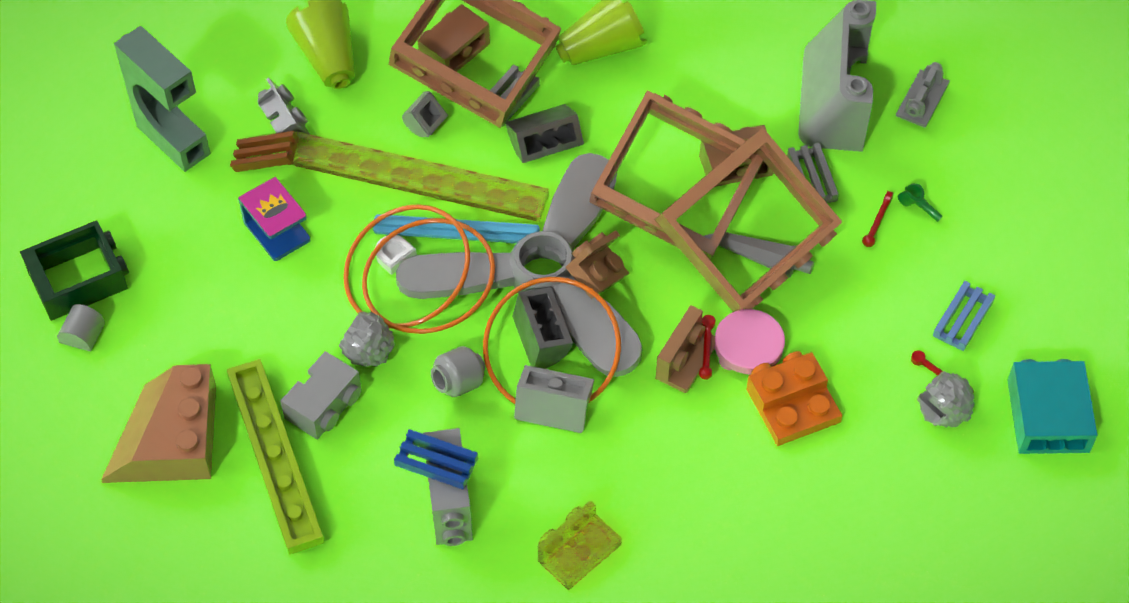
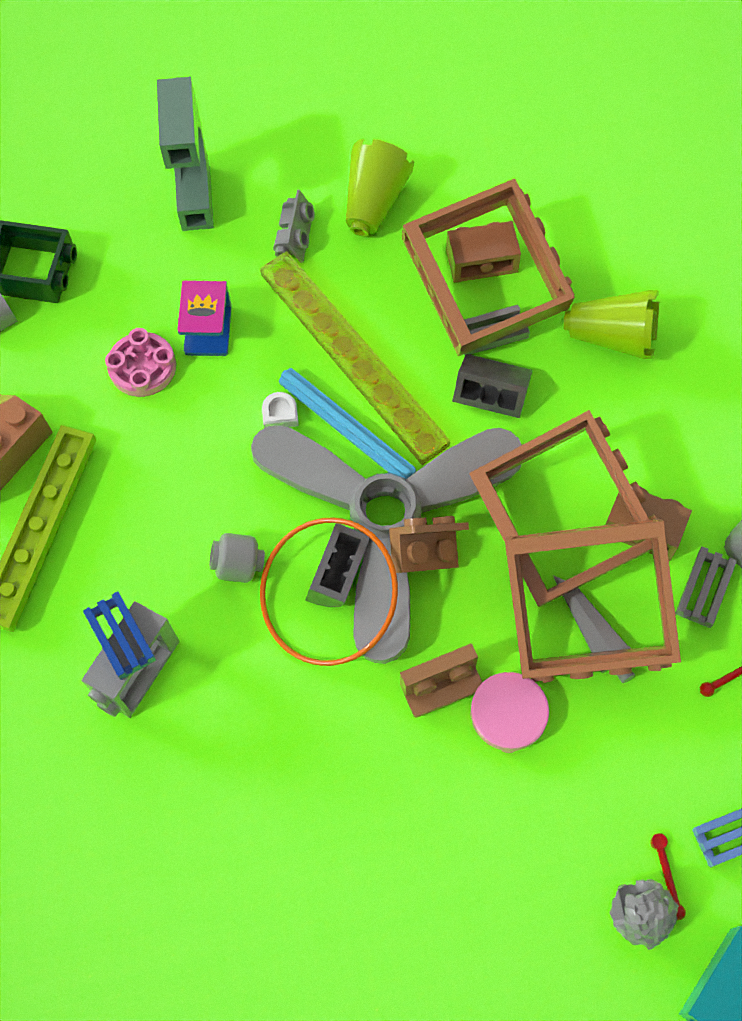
camera: 40 degrees right, 10 degrees up
(246, 287) = (141, 363): none -> bright pink tile
(264, 146) = (253, 250): dark orange tile -> none
(323, 396) = (113, 501): light grey brick -> none
(367, 340) = (184, 477): light grey piece -> none
(387, 214) = (307, 471): orange piece -> none
(424, 115) = (403, 303): light grey brick -> none
(450, 324) = (300, 507): orange piece -> none
(553, 398) = (292, 639): light grey panel -> none
(577, 545) = (202, 793): clear yellow bracket -> none
(705, 371) = (486, 666): red hinge -> none
(793, 397) = (505, 796): orange plate -> none

